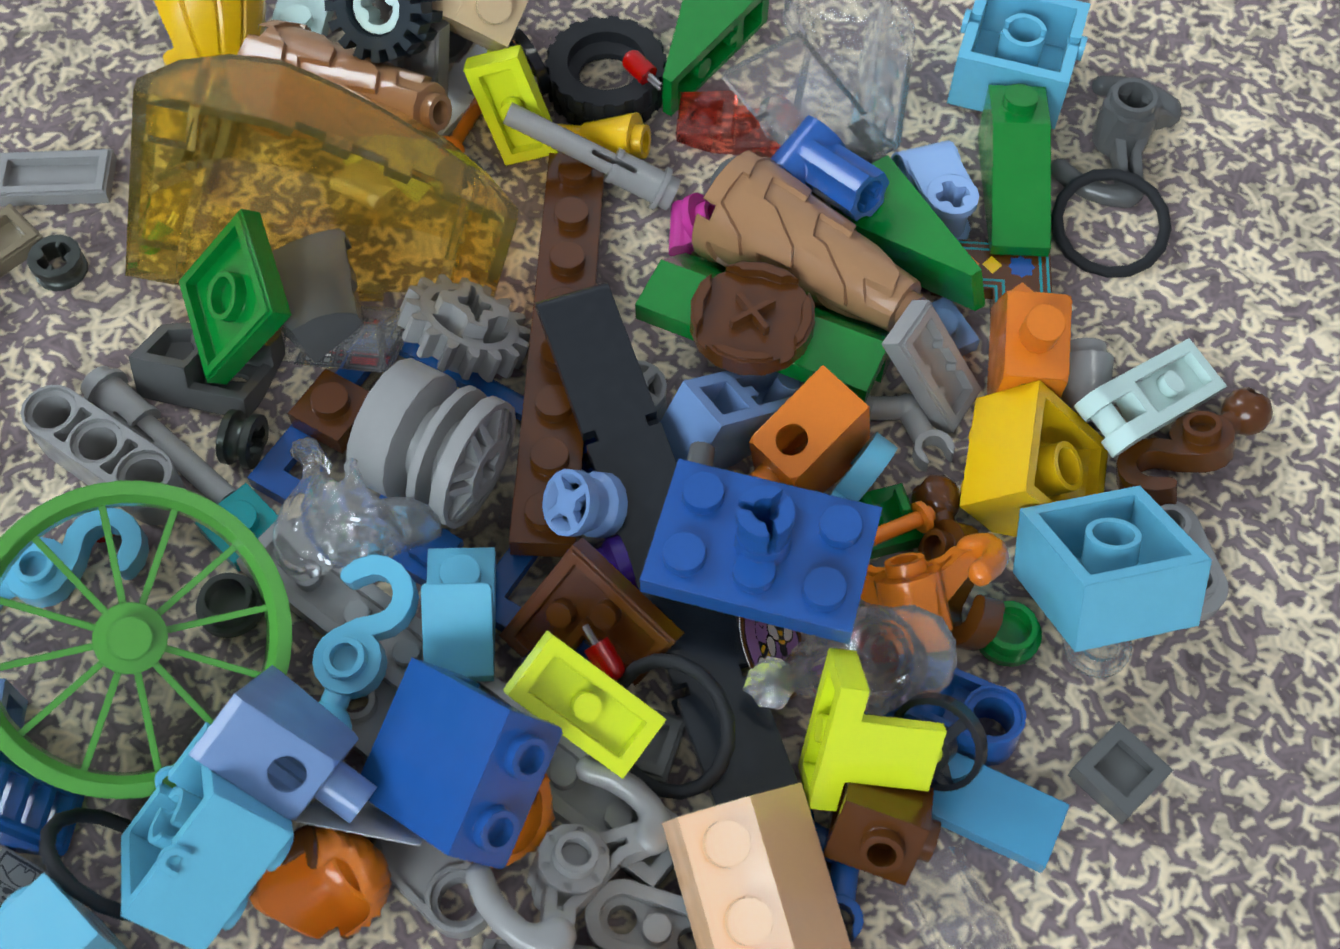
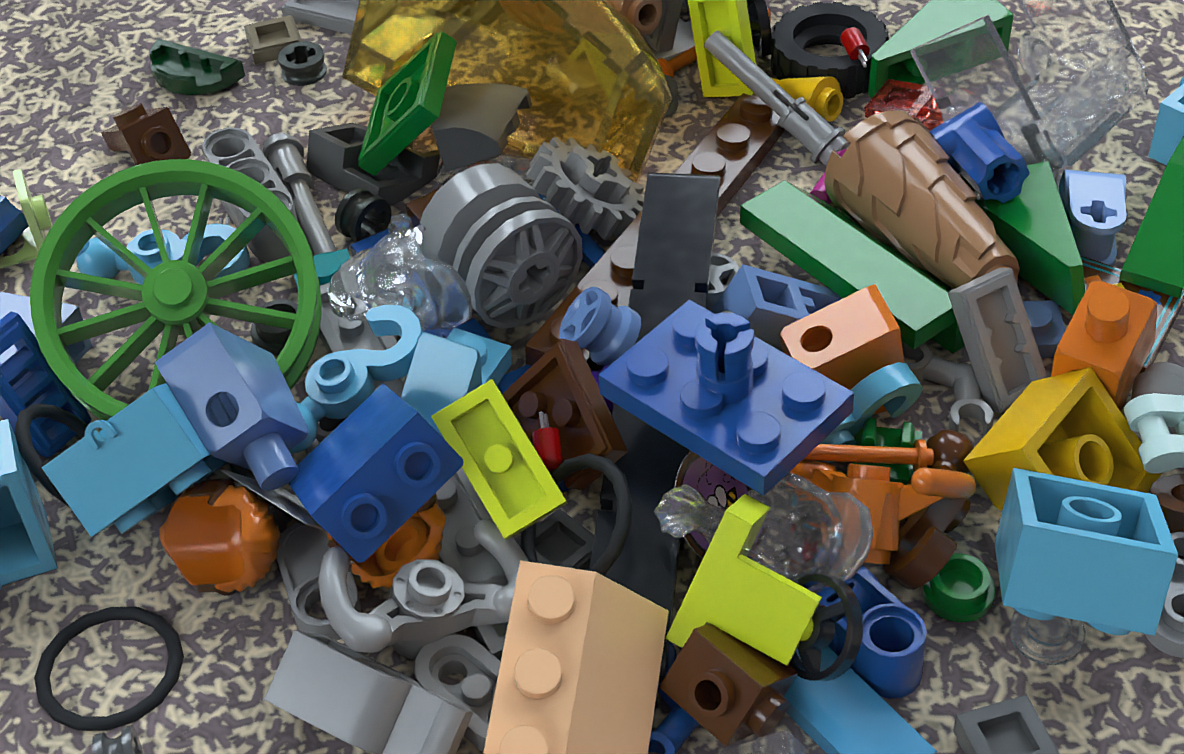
camera: 30 degrees right, 15 degrees down
(752, 318) = (838, 242): reddish brown tile -> none

